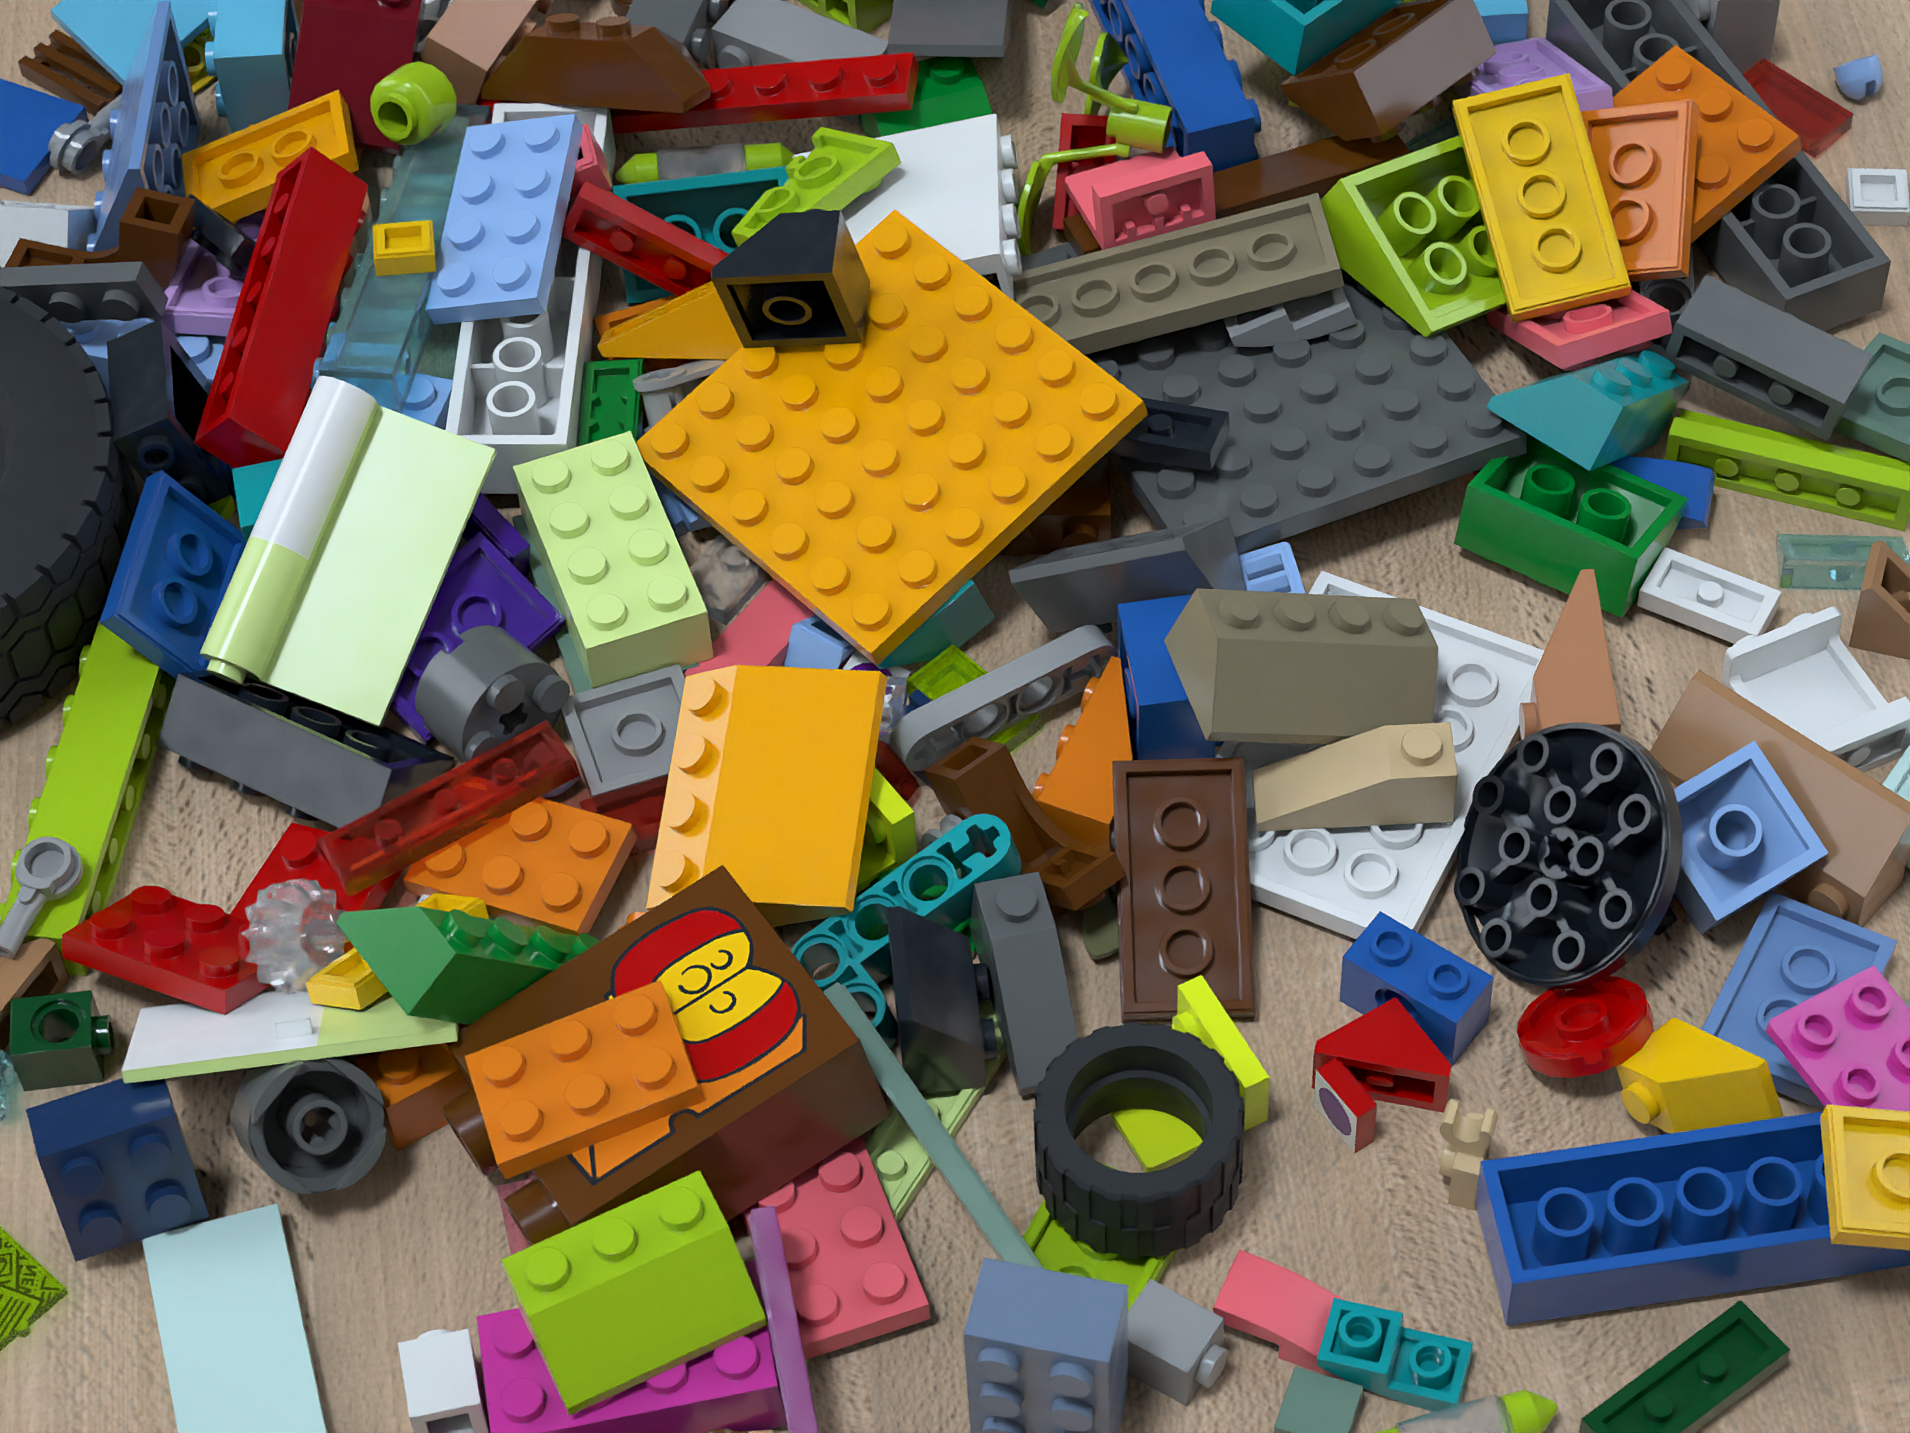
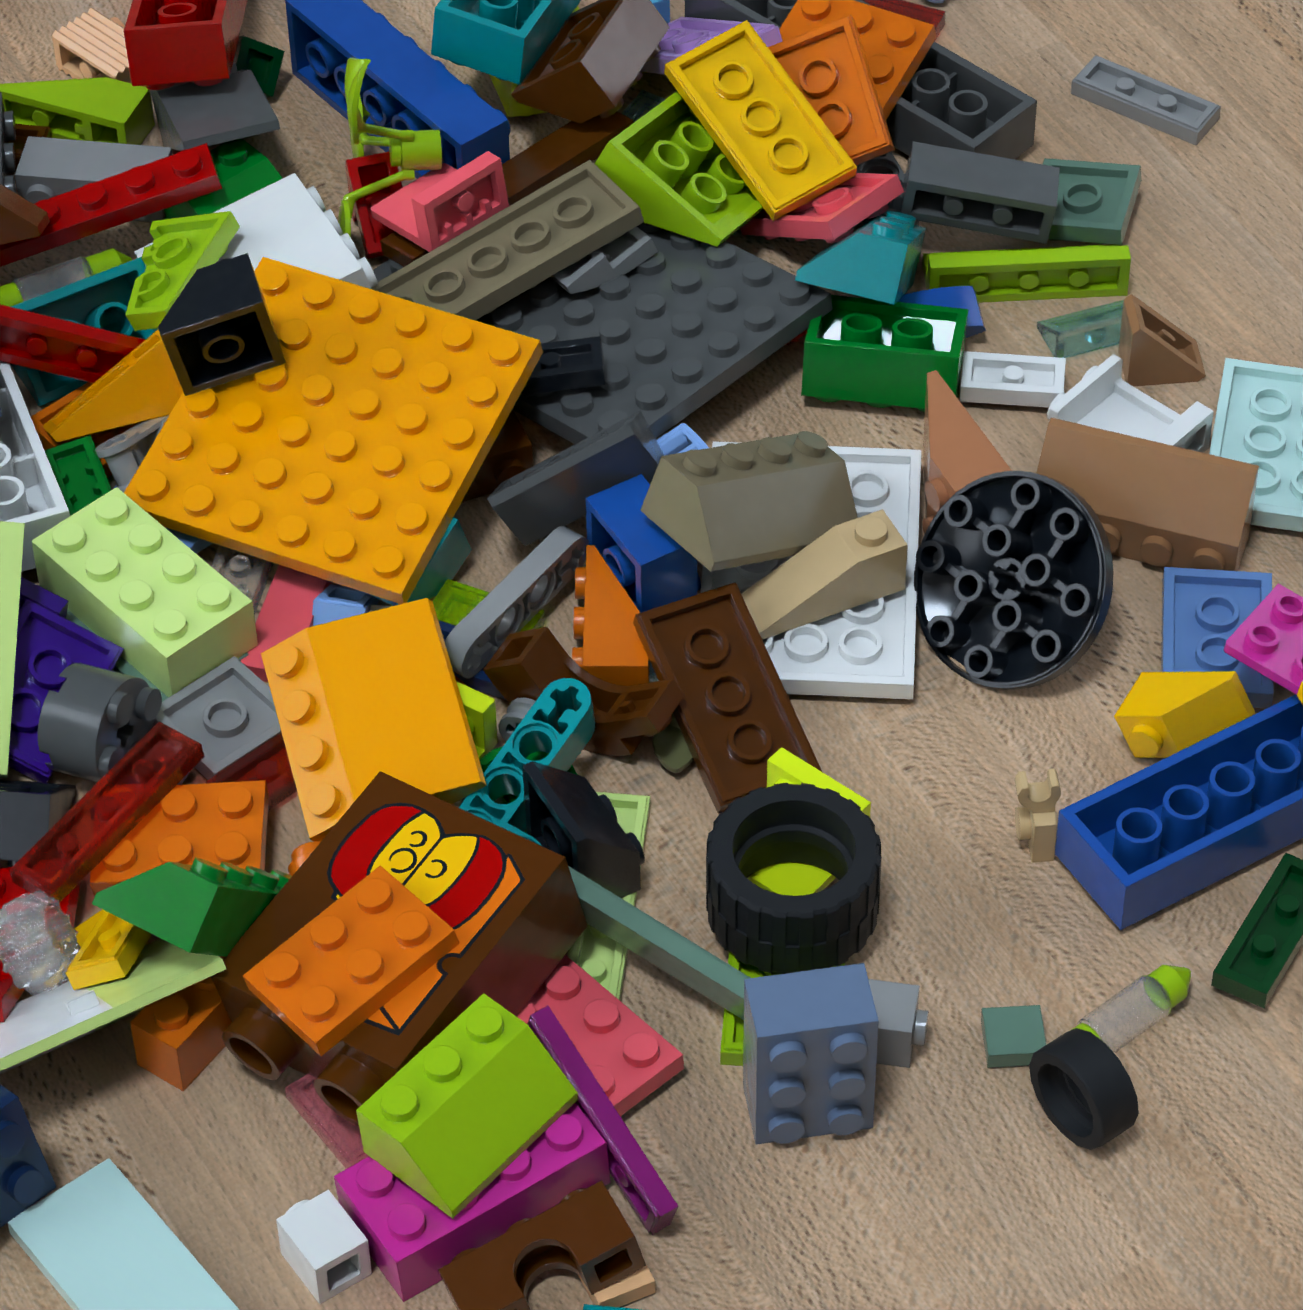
camera: 25 degrees left, 5 degrees down
(331, 1152) = (117, 1079): dark grey brick -> none
(1024, 973) = (643, 796): dark grey slope -> none
(1277, 1308) = (961, 970): coral slope -> none
(1345, 1104) = (926, 813): tile -> none
(1389, 1058) = (941, 772): red slope -> none
(1394, 1361) = (1060, 981): teal slope -> none
(1433, 984) = (937, 714): blue brick -> none
(1585, 1028) = (1077, 702): red tile -> none
(1738, 837) = (1141, 526): light blue slope -> none
(1878, 196) = (996, 60): white tile -> none

